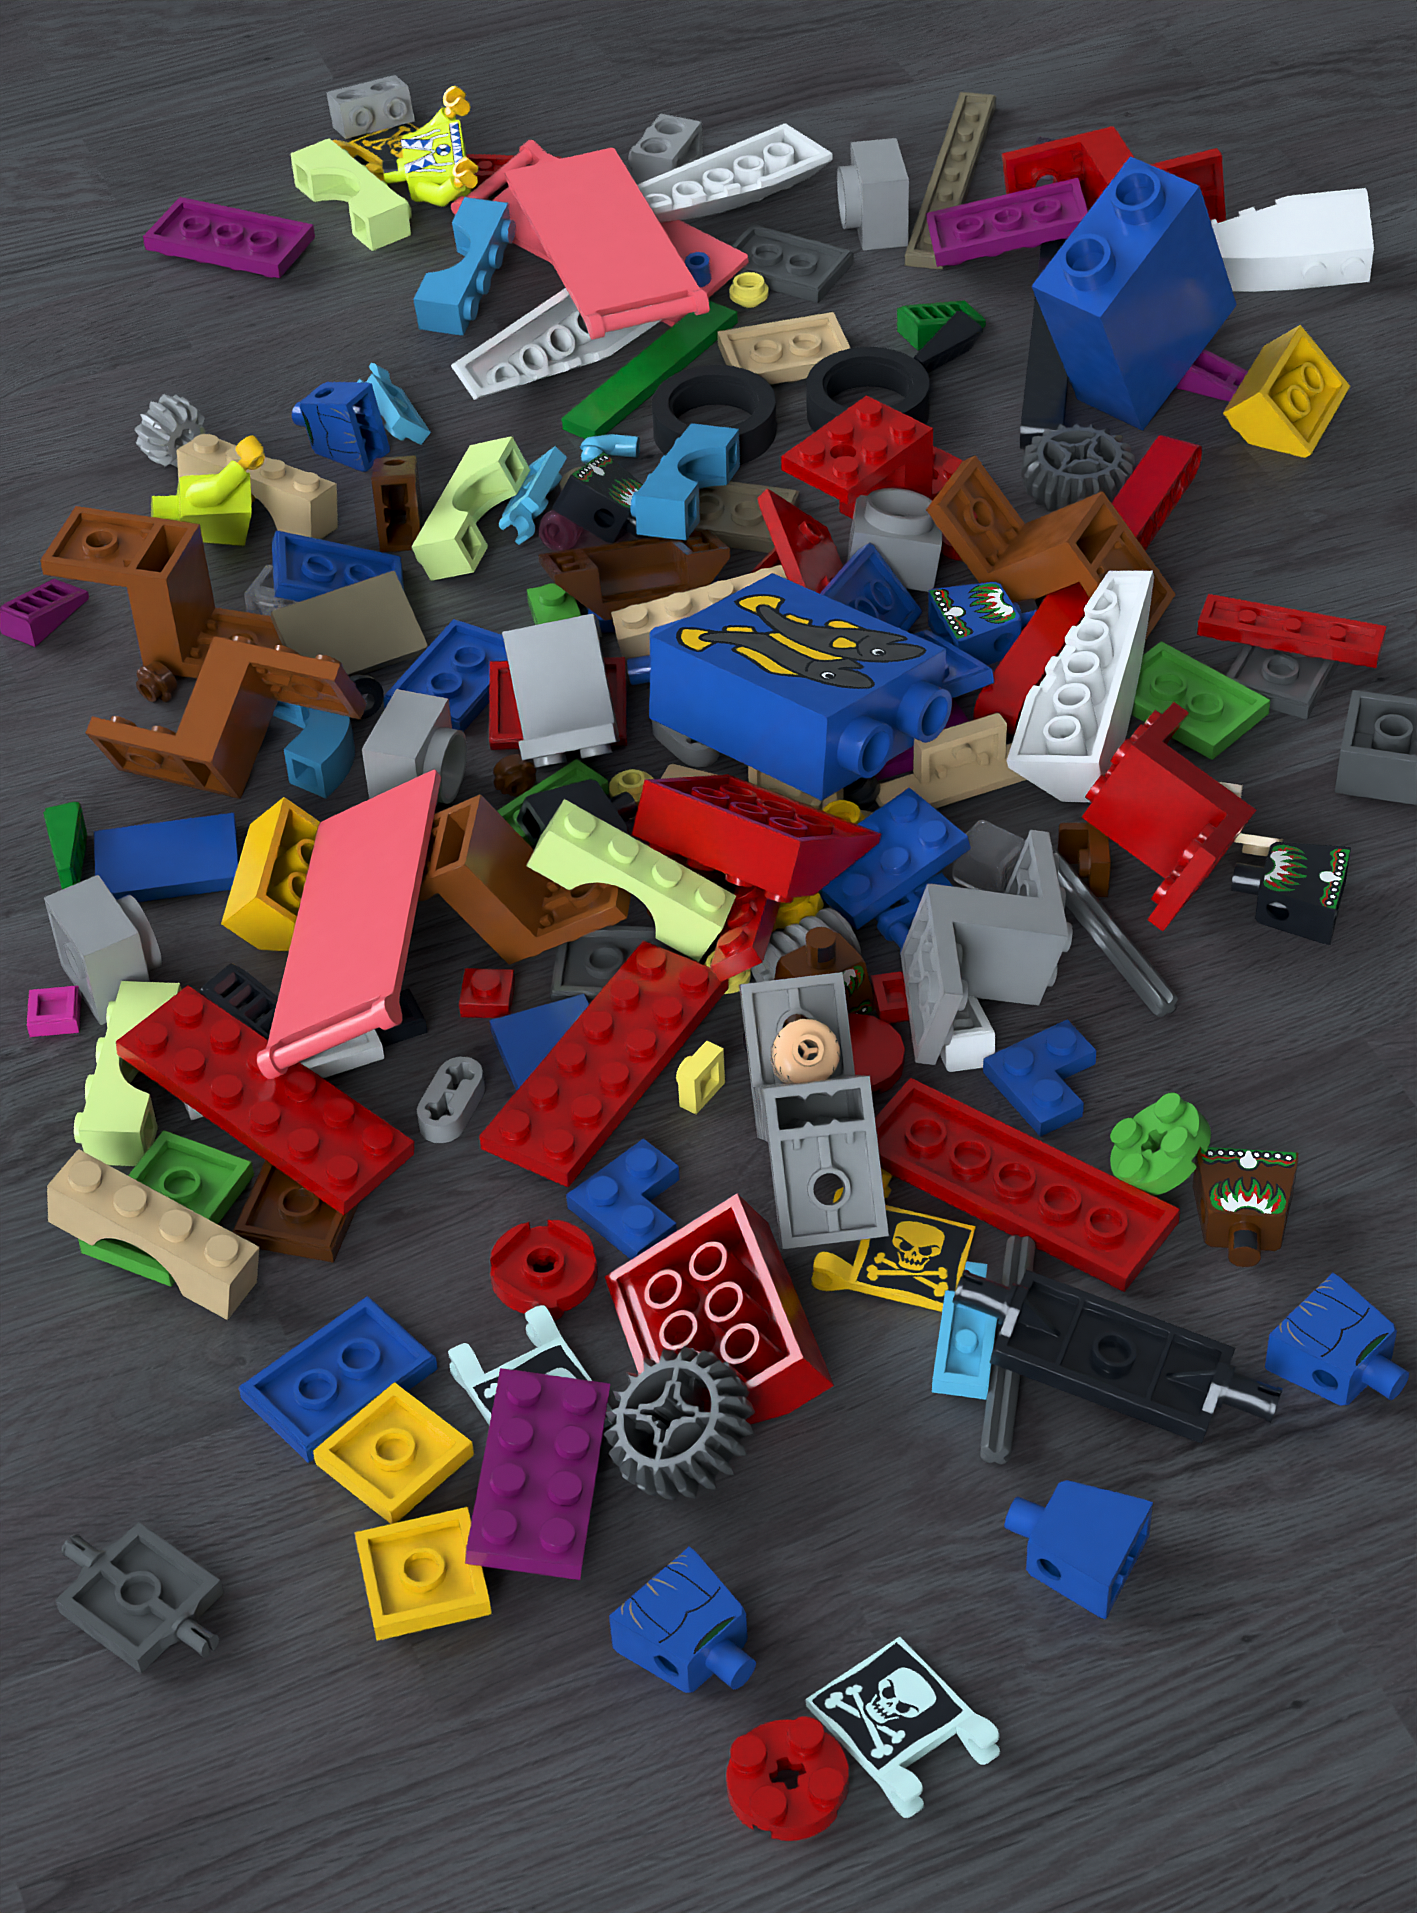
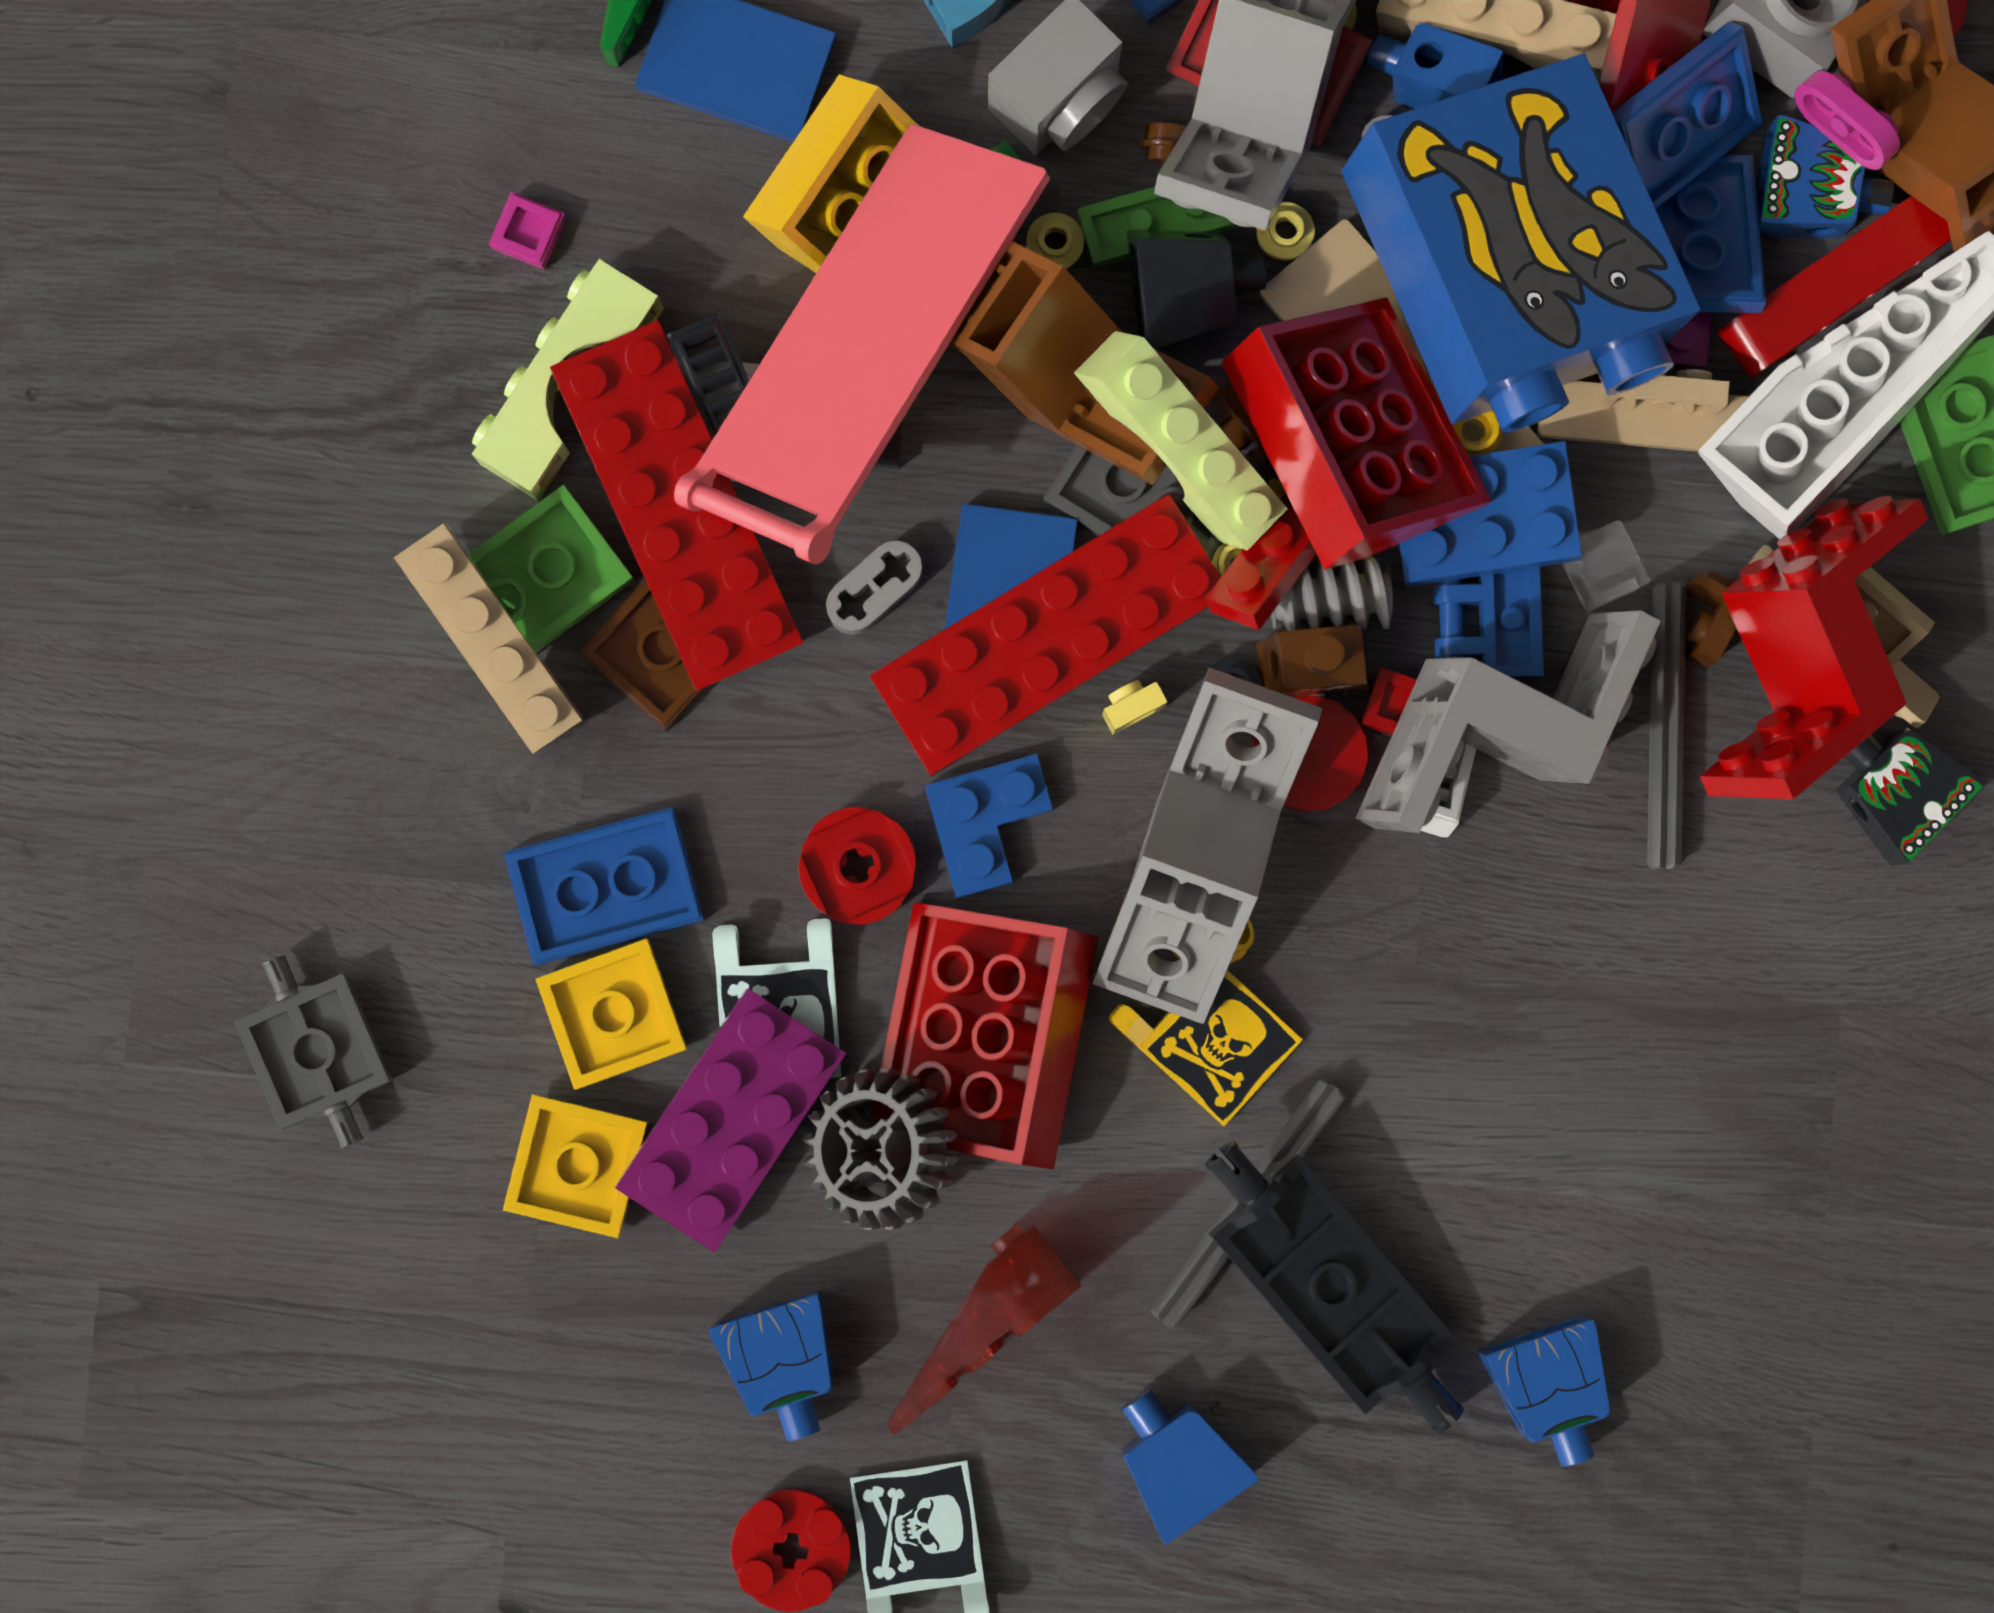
camera: 20 degrees right, 40 degrees up
(101, 941) = (601, 195): light grey piece -> none
(487, 993) = (982, 454): red plate -> none
(788, 1063) = (1226, 789): light nougat head -> none
(856, 1484) = (1007, 1297): none -> clear red wedge
(964, 1347) = (1195, 1195): medium azure plate -> none
(976, 562) = (1847, 119): none -> dark pink plate
(1021, 1184) = (1371, 1017): red plate -> none
(1033, 1075) = (1470, 873): blue plate -> none
(1168, 1124) = (1508, 1041): bright green plate -> none
(1244, 1199) = (1575, 1168): torso -> none

